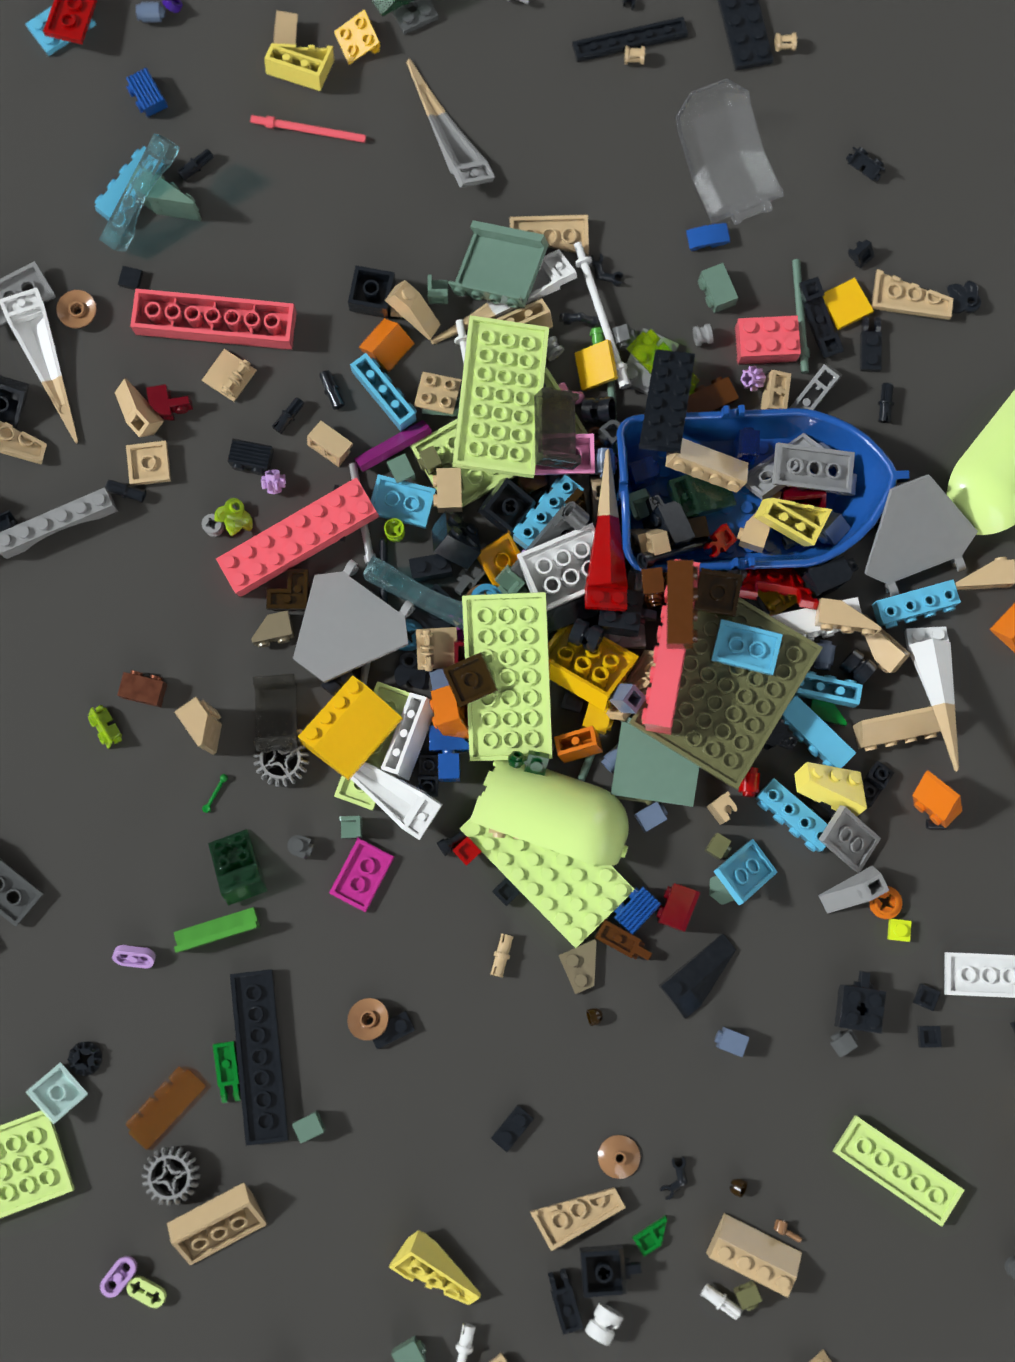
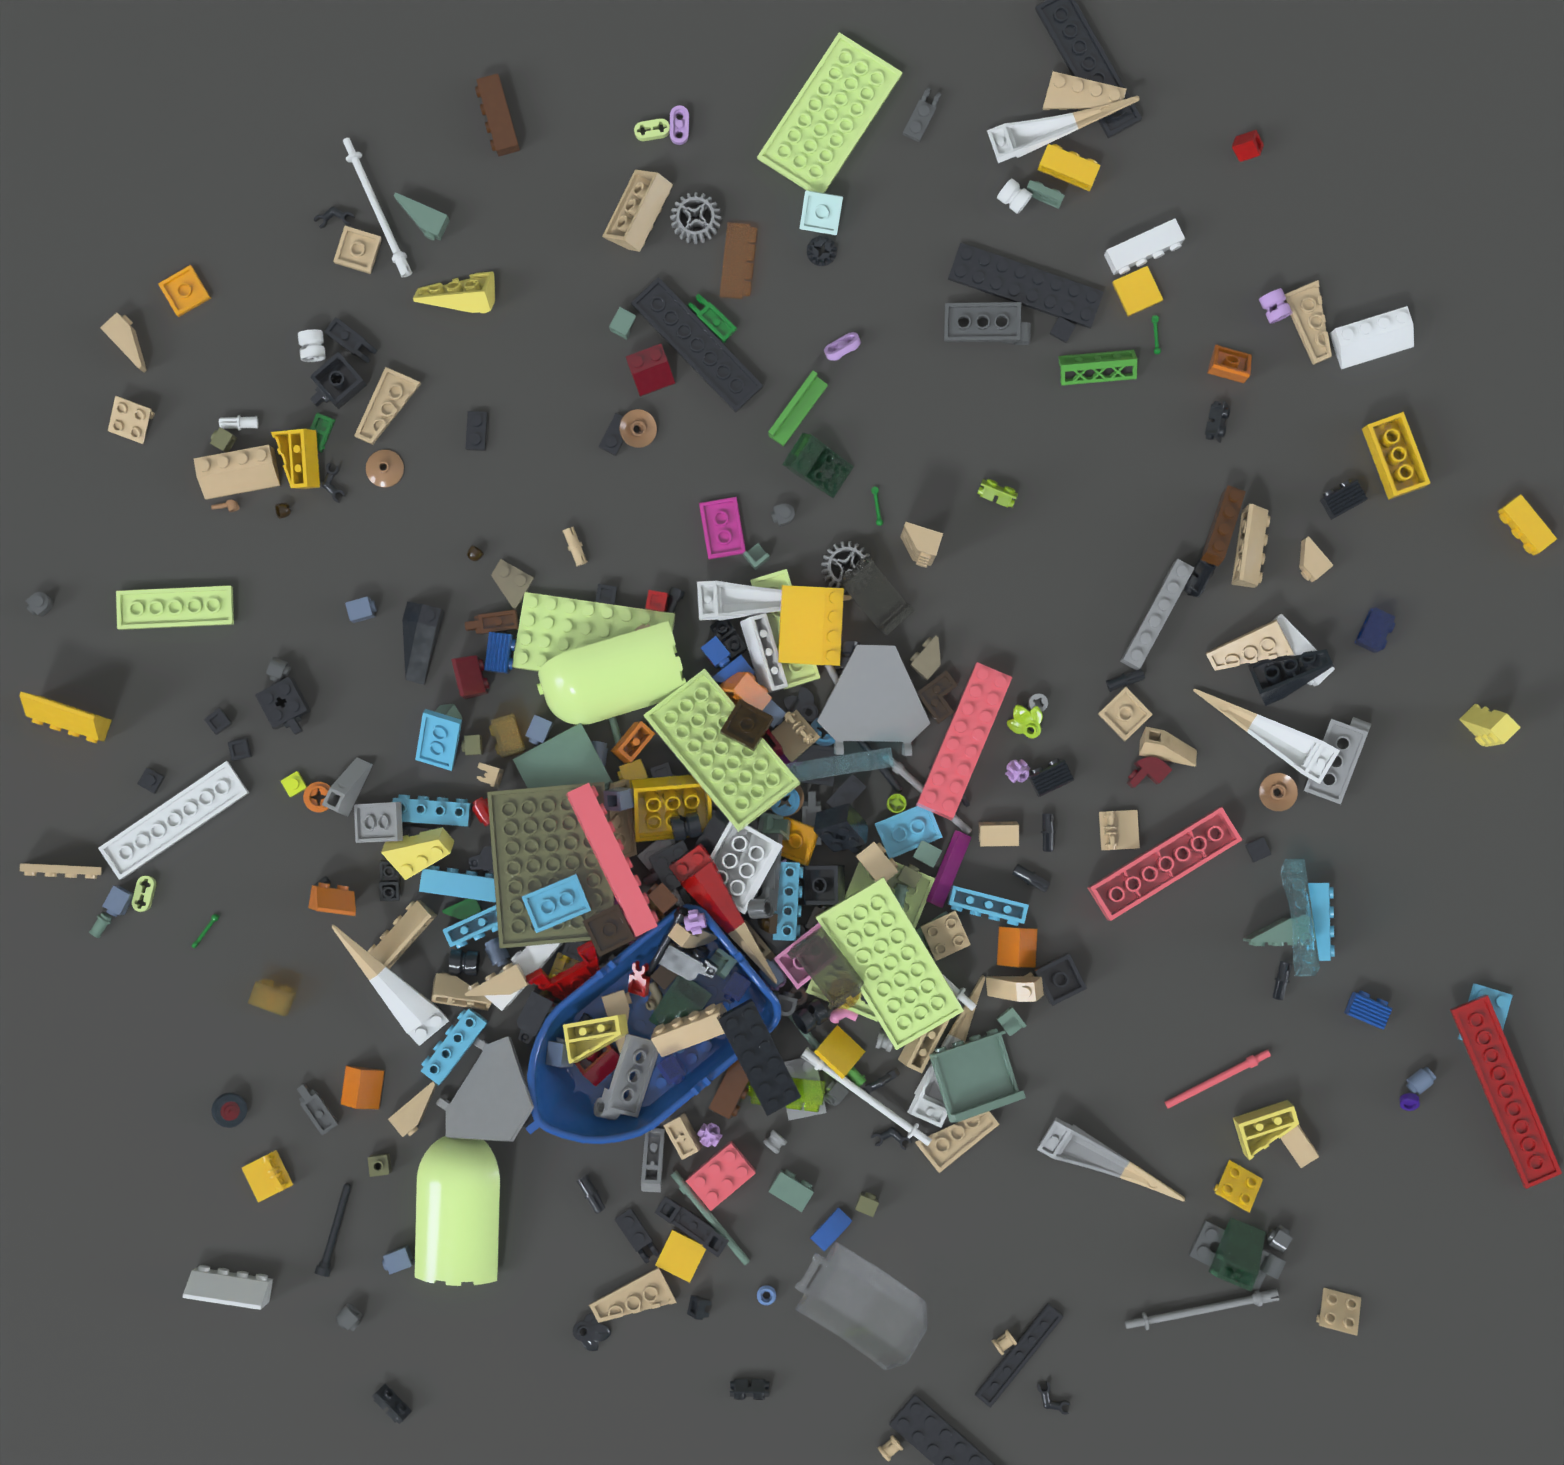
camera: 145 degrees right, 5 degrees up
(142, 689) = (991, 540): copper brick -> none
(317, 1064) = (650, 370): none -> dark red slope
(447, 454) = (900, 893): none -> sand green pin
(534, 763) = (654, 701): dark green plate -> none
(639, 543) = (695, 921): none -> lavender gear
(664, 234) = (867, 1203): none -> olive plate
(680, 604) = (626, 890): reddish brown brick -> none
(682, 832) = (507, 736): none -> clear yellow brick
(689, 1224) = (299, 456): none -> yellow wedge
(717, 518) = (655, 997): none -> dark tan arm
(801, 219) = (766, 1301): none -> medium blue plate
(841, 484) = (576, 1095): light grey hinge -> none

